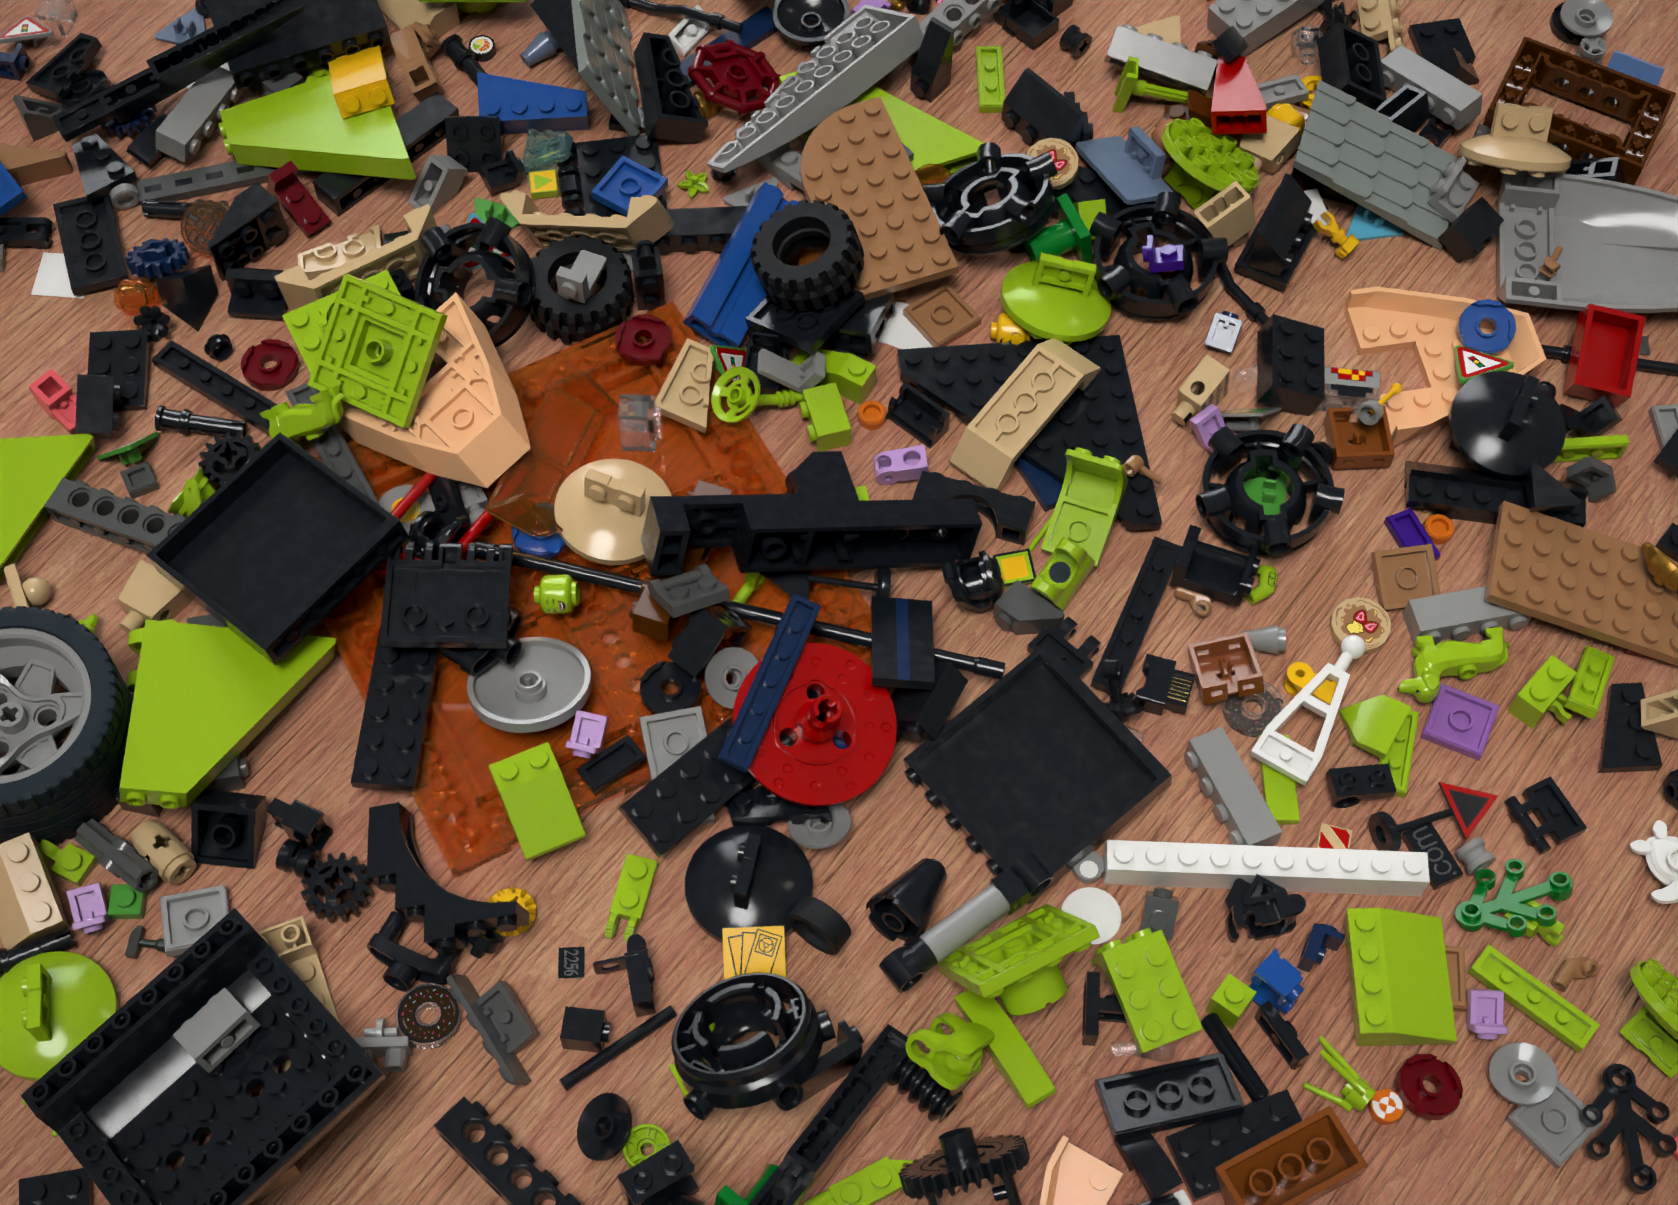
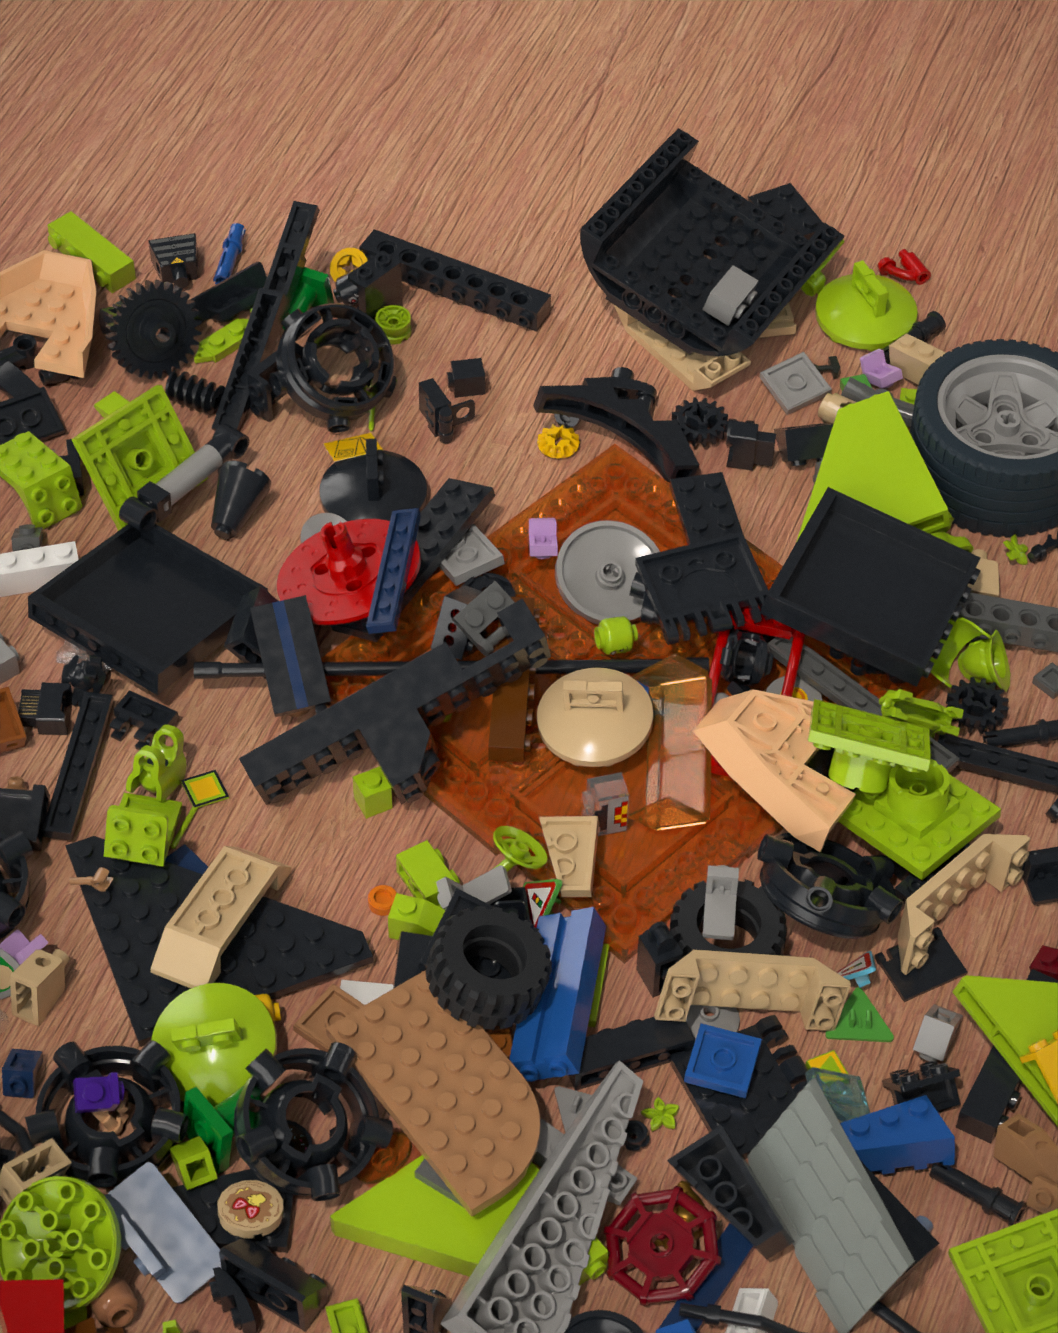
camera: 165 degrees right, 10 degrees down
(270, 378) = (1016, 805): dark red tile -> none
(330, 256) = (990, 930): tan wing -> none
(386, 1043) = (614, 339): light grey hips -> none
(415, 1003) = (587, 358): tile -> none
(483, 47) = (981, 1225): tile -> none
(499, 1022) = (533, 365): dark grey bracket -> none
(503, 173) = (875, 1061): black bracket -> none
(537, 801) = (567, 491): lime slope -> none
(571, 962) = (497, 425): black sticker -> none
(604, 1127) = (428, 326): black dish -> none
(611, 765) = (512, 533): black tile -> none
(617, 1047) = (413, 402): black bar -> none
(631, 894) = (466, 465): lime hinge -> none
(647, 353) = (632, 909): dark red tile -> none
(728, 660) = (428, 606): light grey dish -> none
(819, 925) = (312, 454): black tyre -> none
(900, 465) = (335, 846): lavender leg -> none
(918, 415) = (332, 904): black hinge -> none
(951, 1057) = (180, 396): lime piece -> none
(974, 581) = (233, 742): black helmet -> none
(1007, 513) = (290, 827): black arch -> none
(1025, 611) = (198, 740): dark grey slope -> none
(1096, 908) = (86, 534): white sticker -> none

